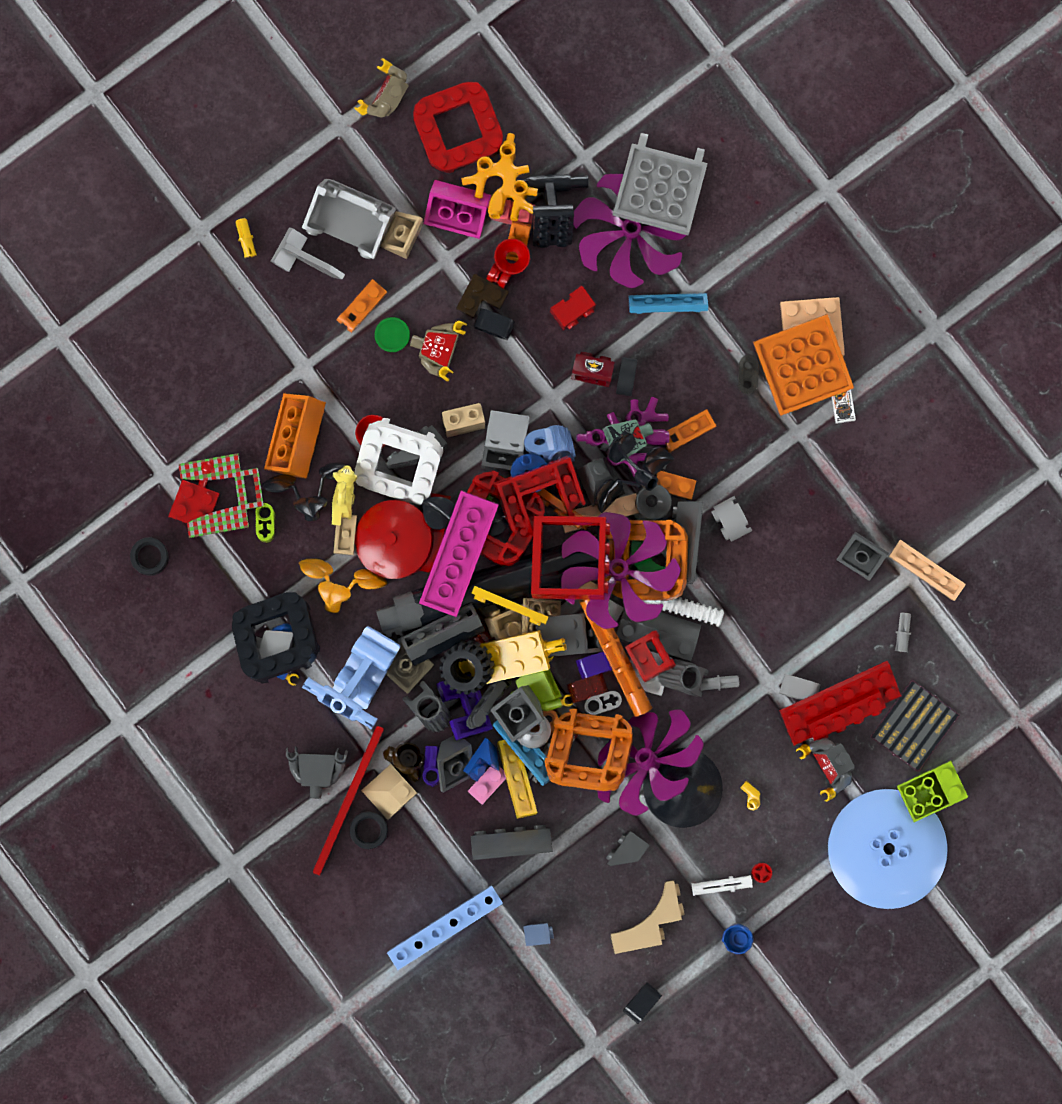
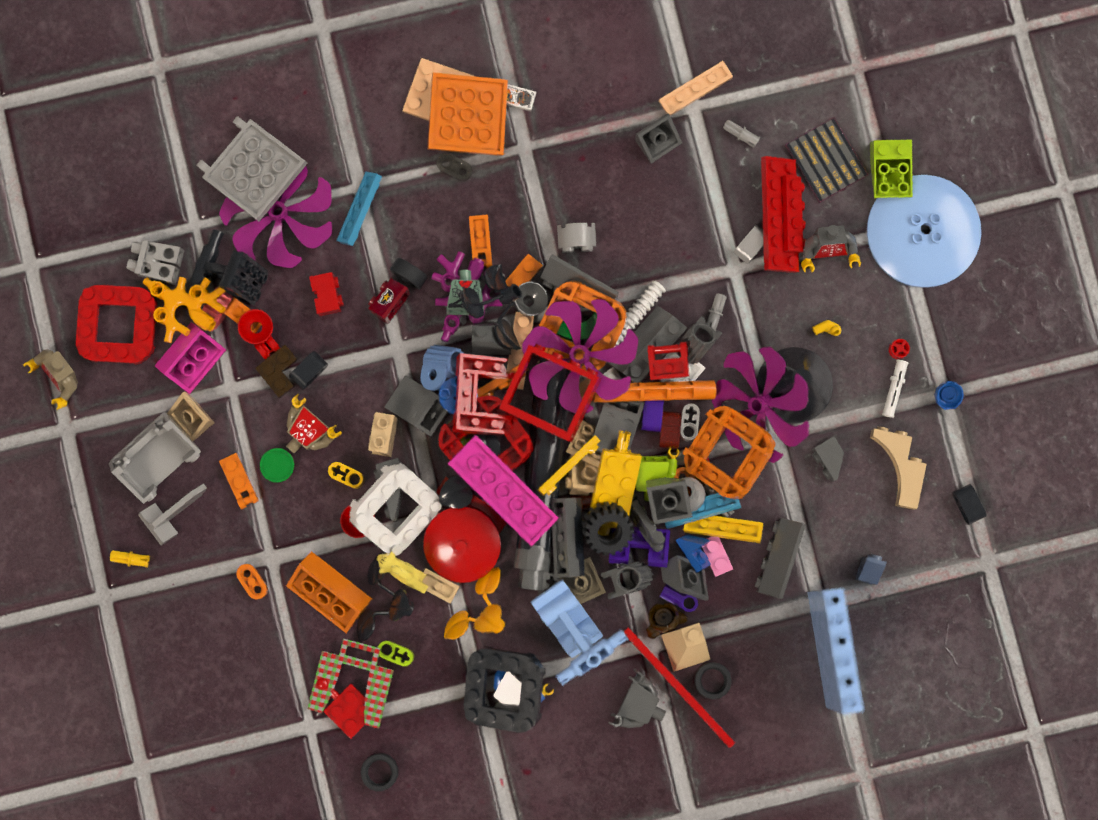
camera: 55 degrees left, 0 degrees up
(273, 360) = (249, 583): none -> orange plate
(416, 399) = (344, 468): none -> yellow beam
(532, 130) = (149, 261): none -> light grey hips

